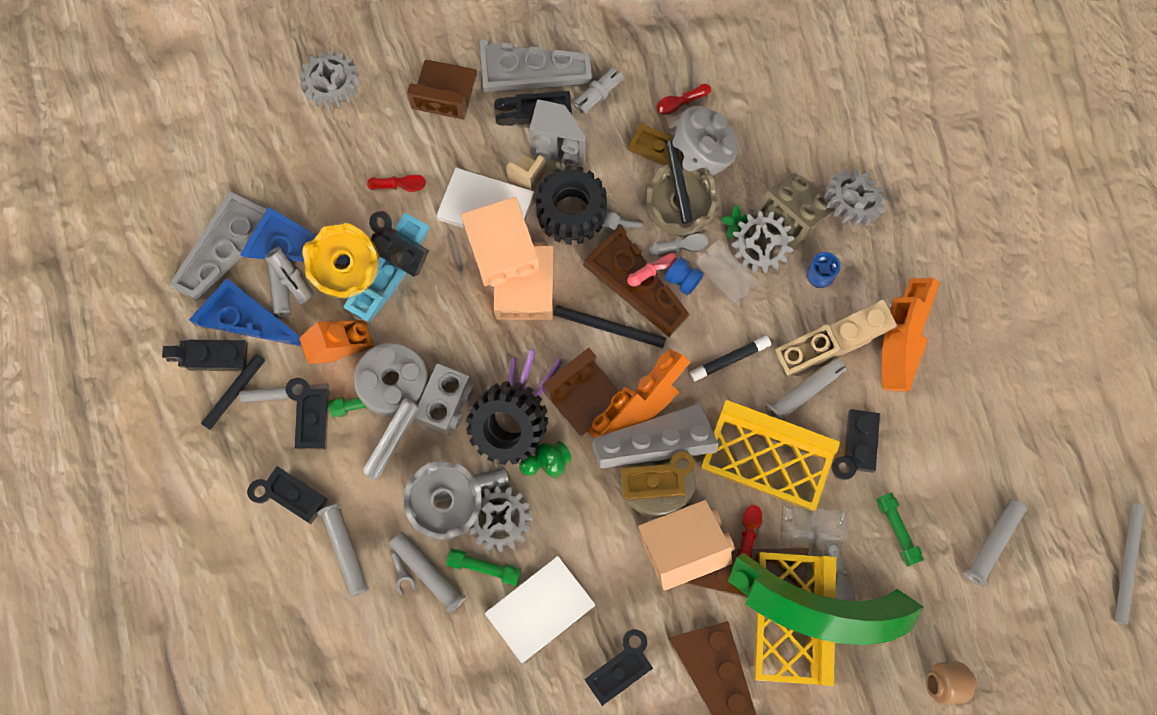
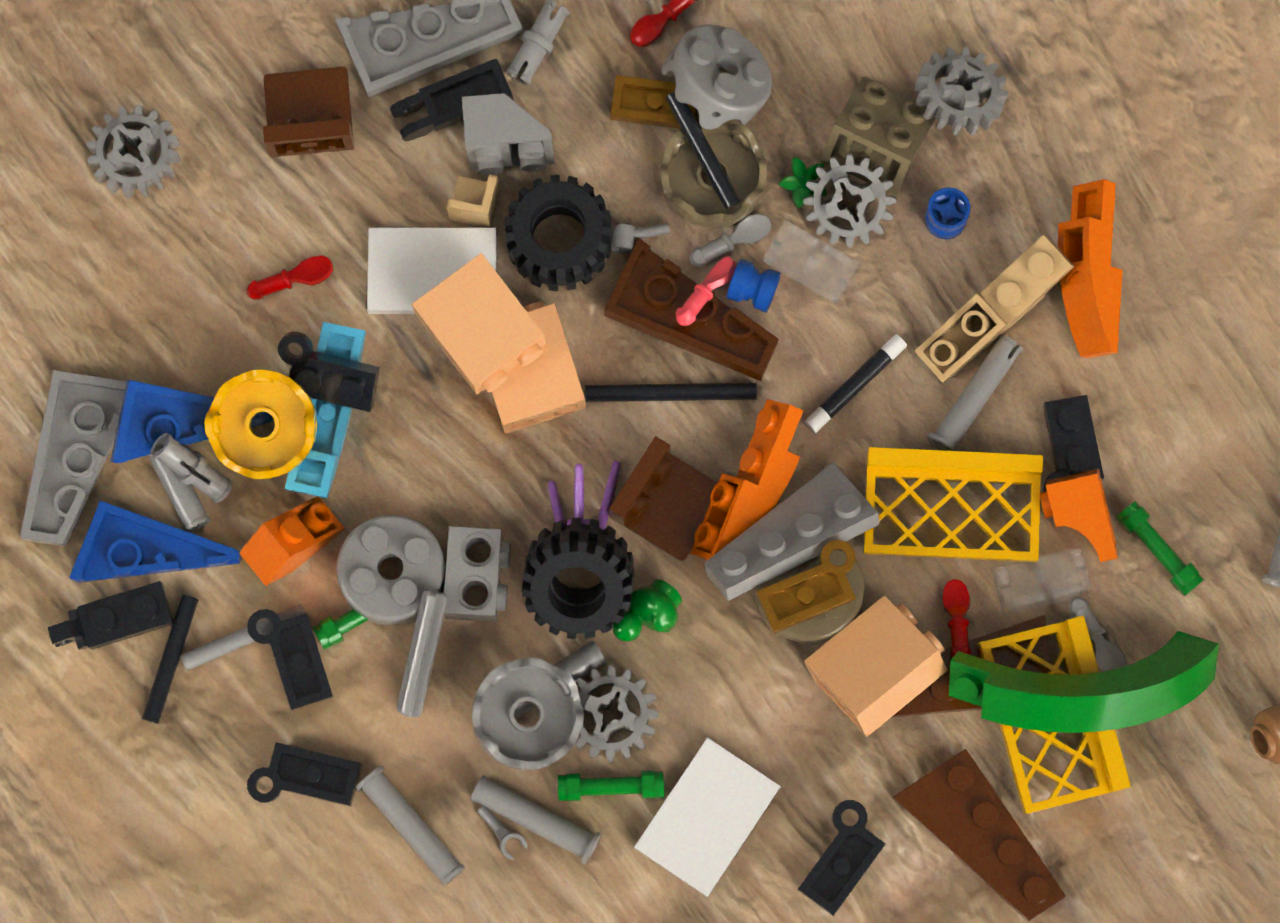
camera: 15 degrees left, 5 degrees up
(856, 483) = (1082, 505): none -> orange arch

